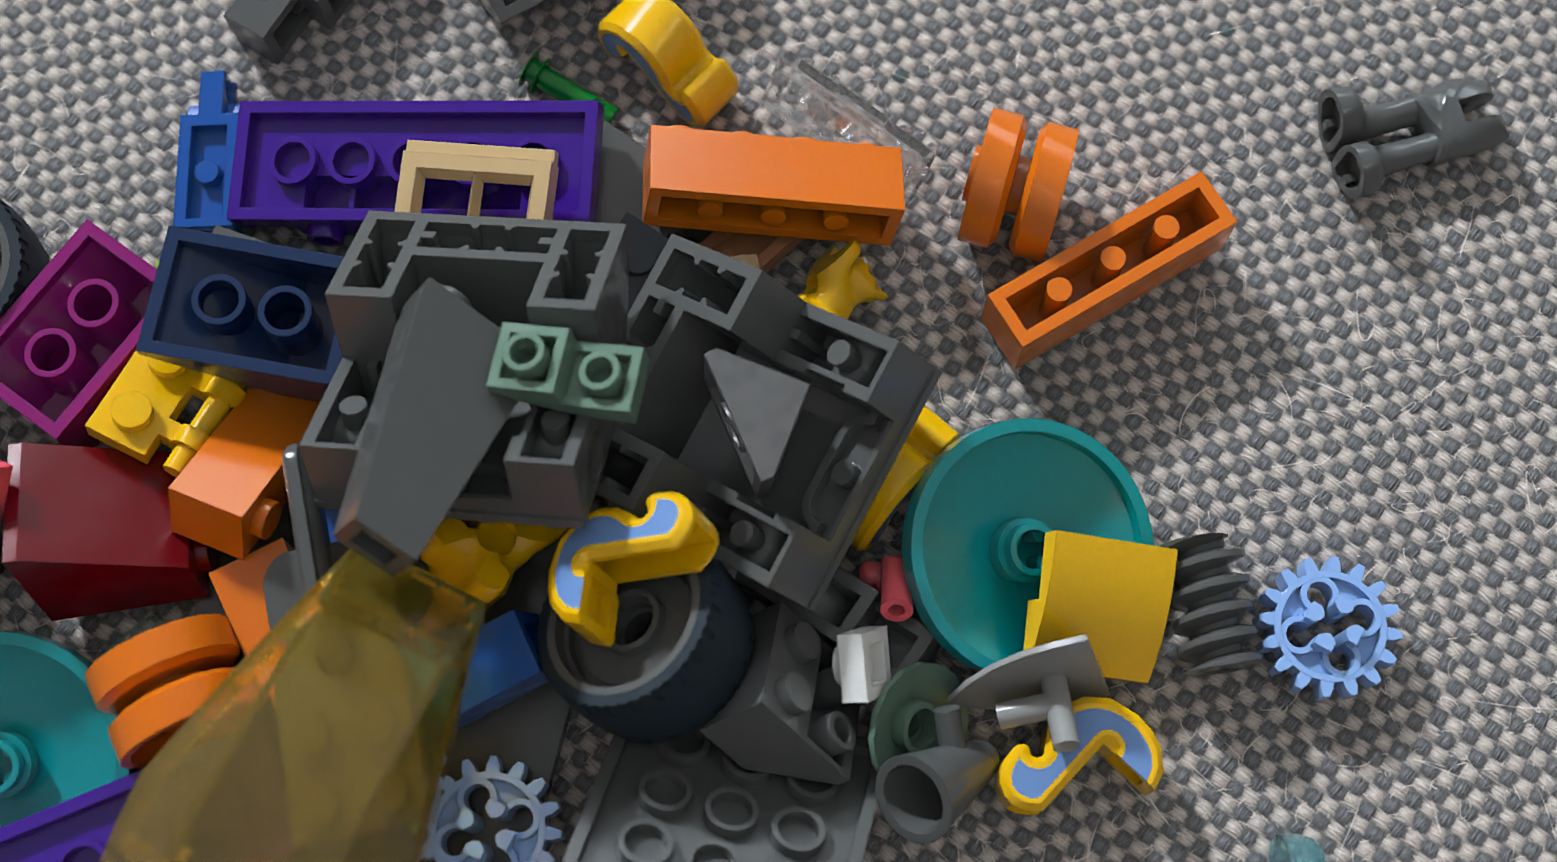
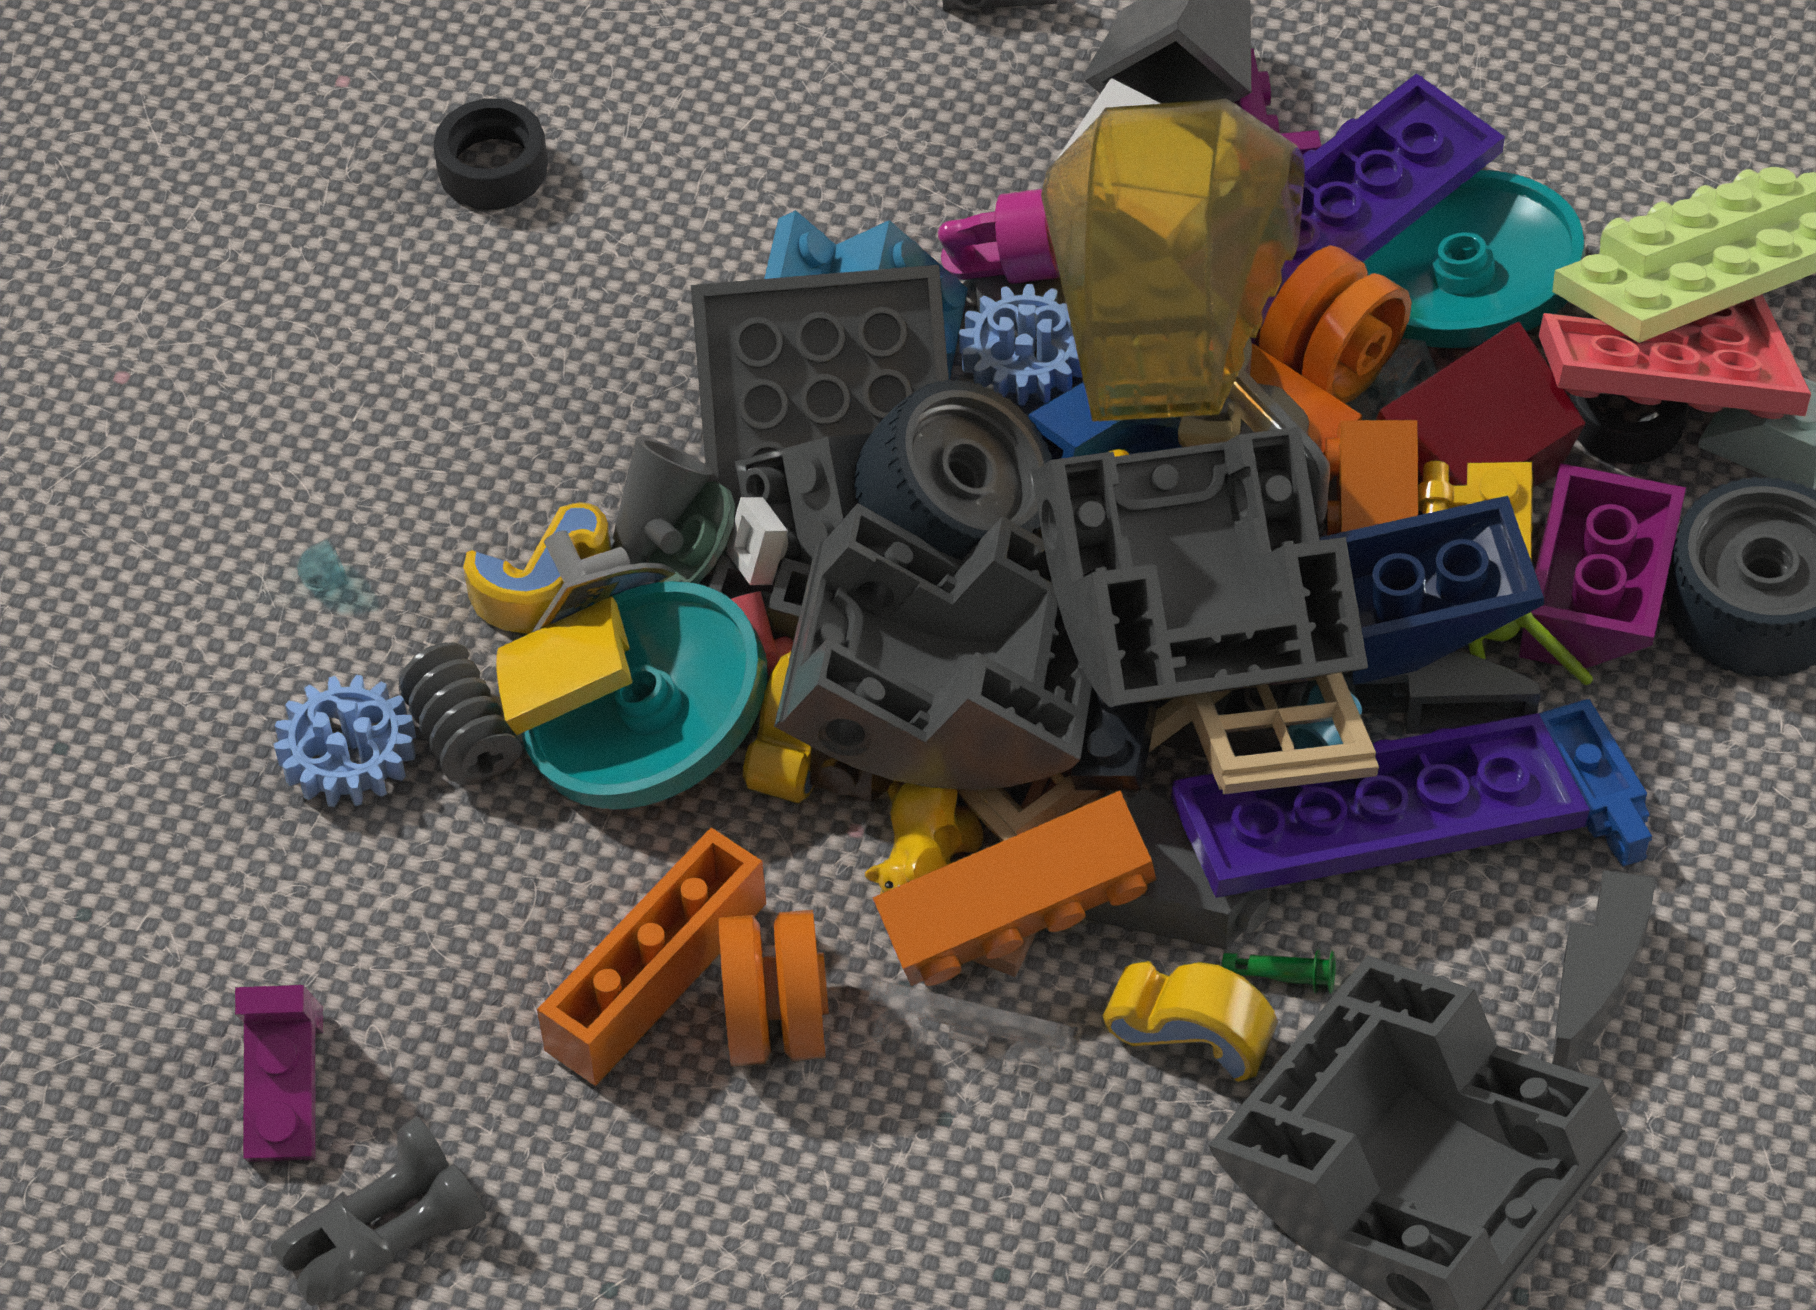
camera: 160 degrees right, 20 degrees down
(423, 428) = (1192, 469): dark grey slope -> none
(568, 375) = (1109, 536): sand green slope -> none
(623, 549) = (987, 487): yellow animal -> none
(757, 412) = (929, 620): flat silver slope -> none
(1468, 302) = (279, 1071): none -> magenta bracket

